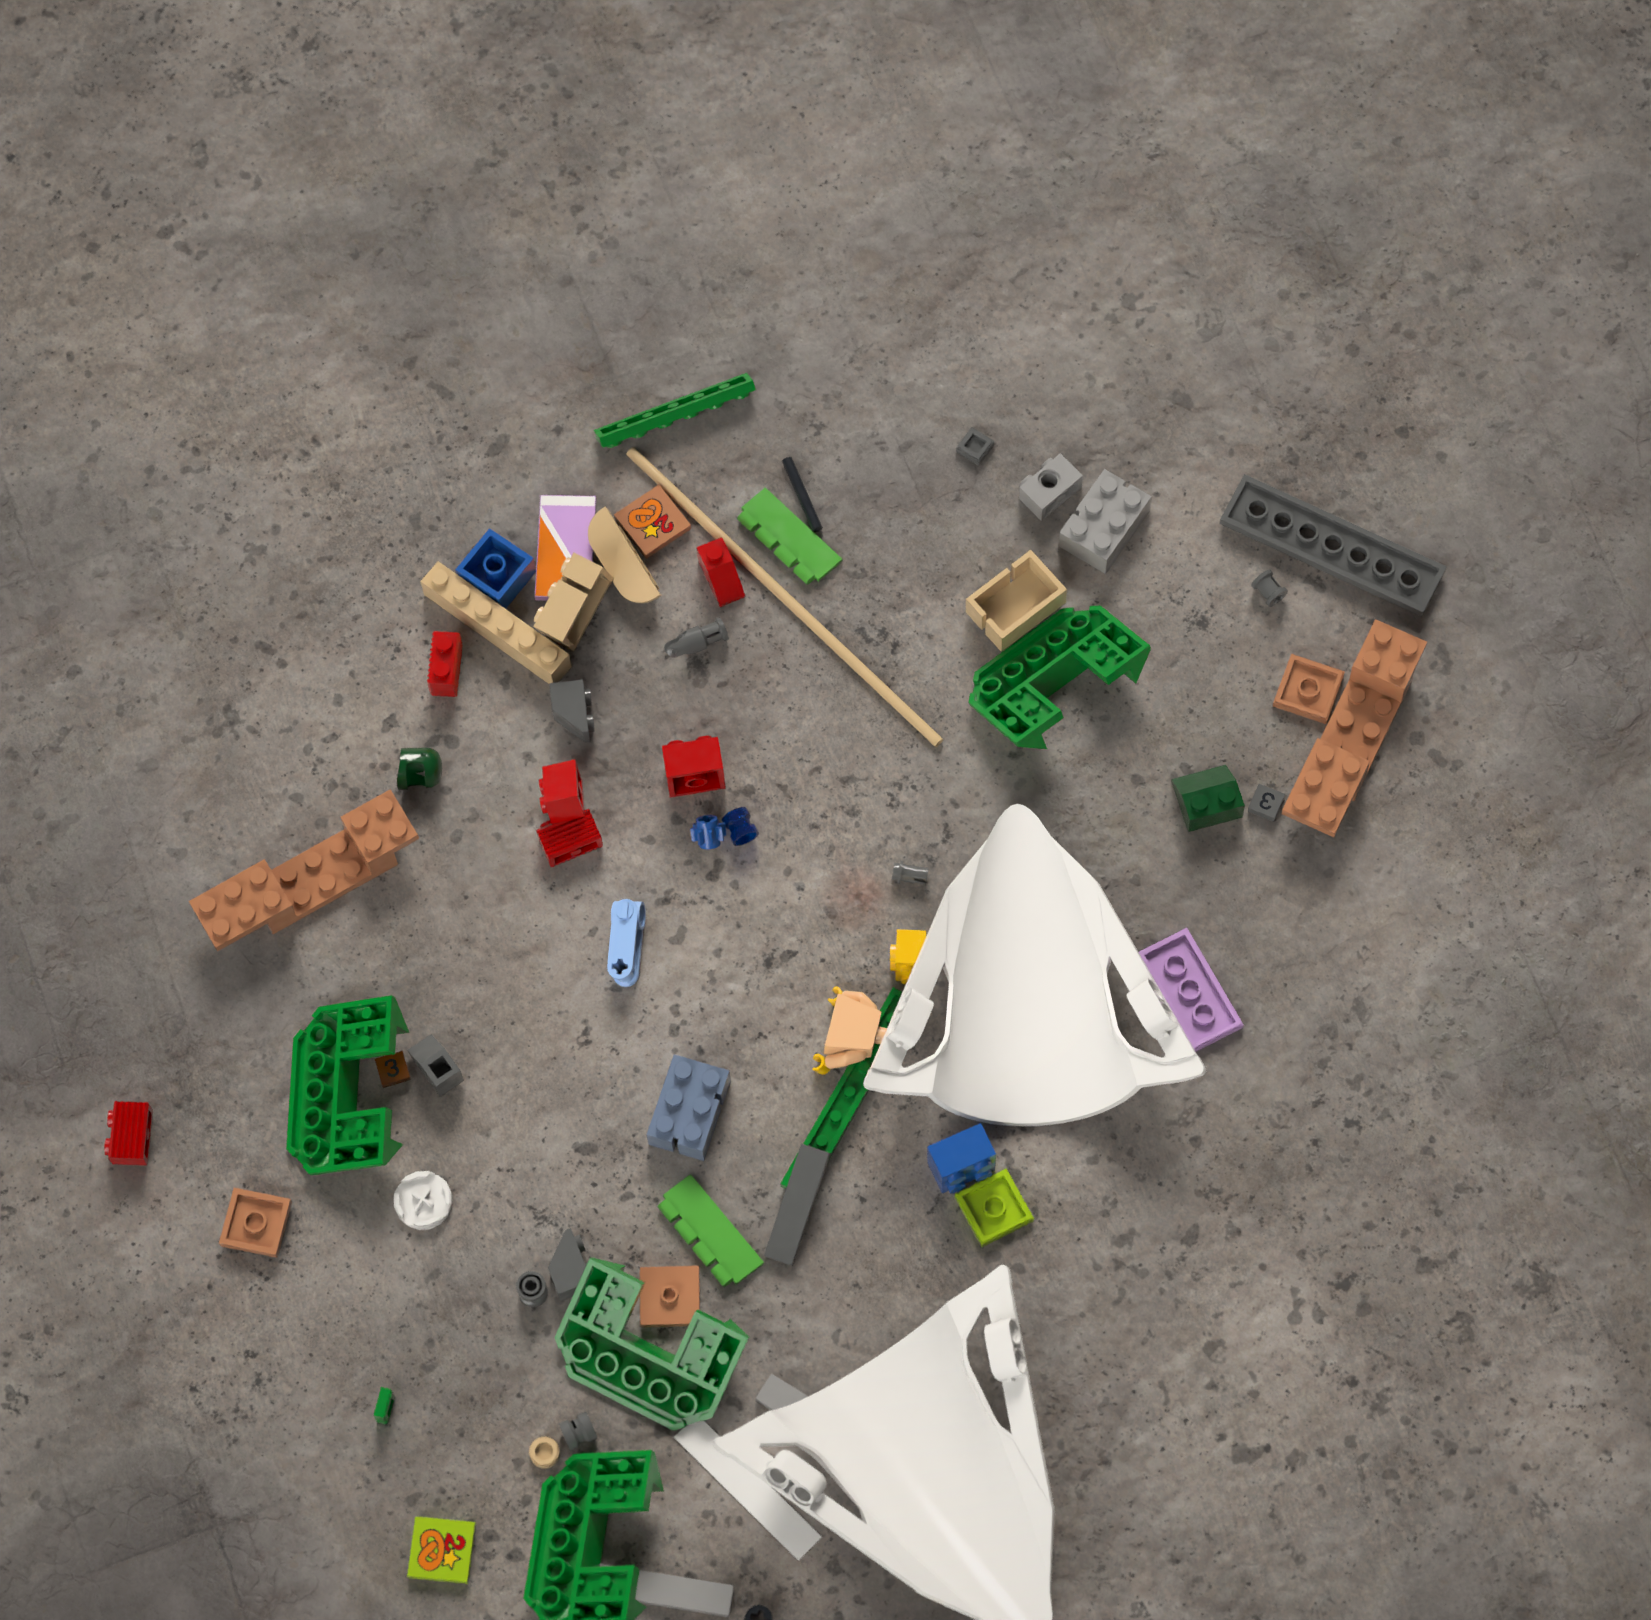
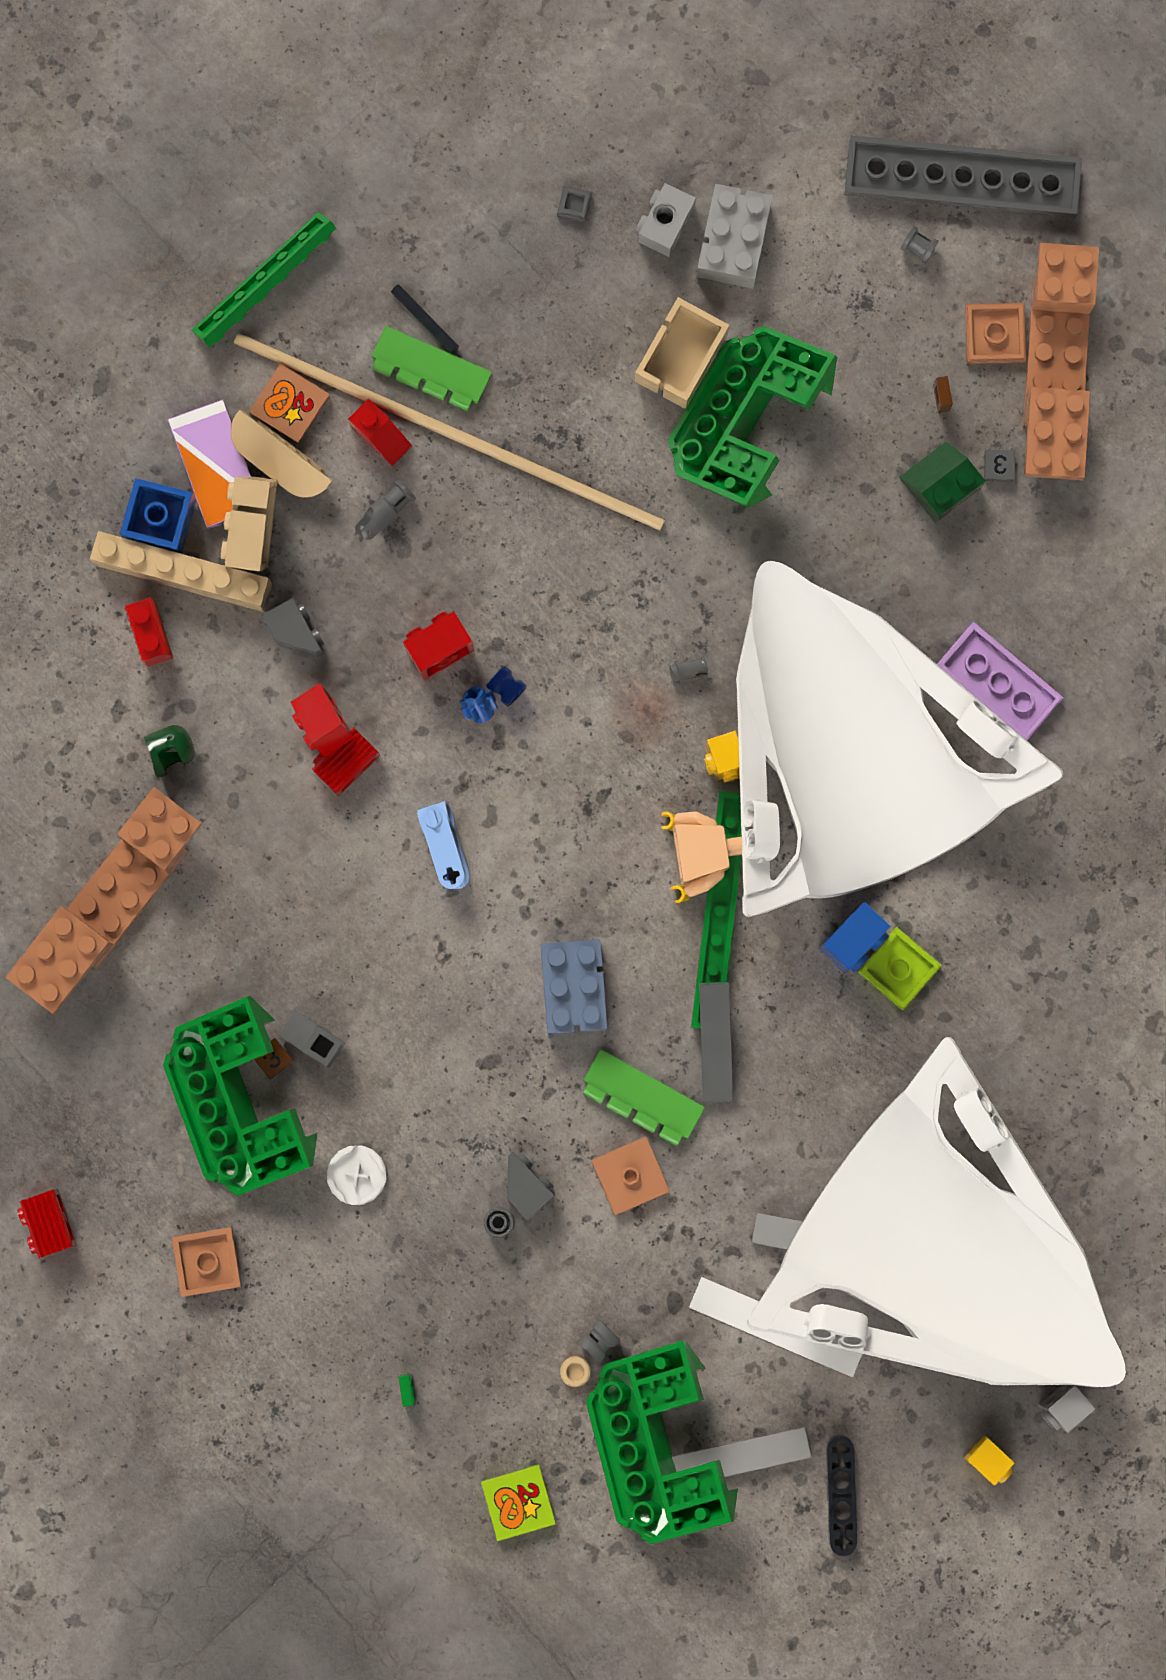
camera: 25 degrees left, 15 degrees up
(634, 1371) = (632, 1259): green slope -> none
(1238, 721) = (942, 394): none -> reddish brown tile

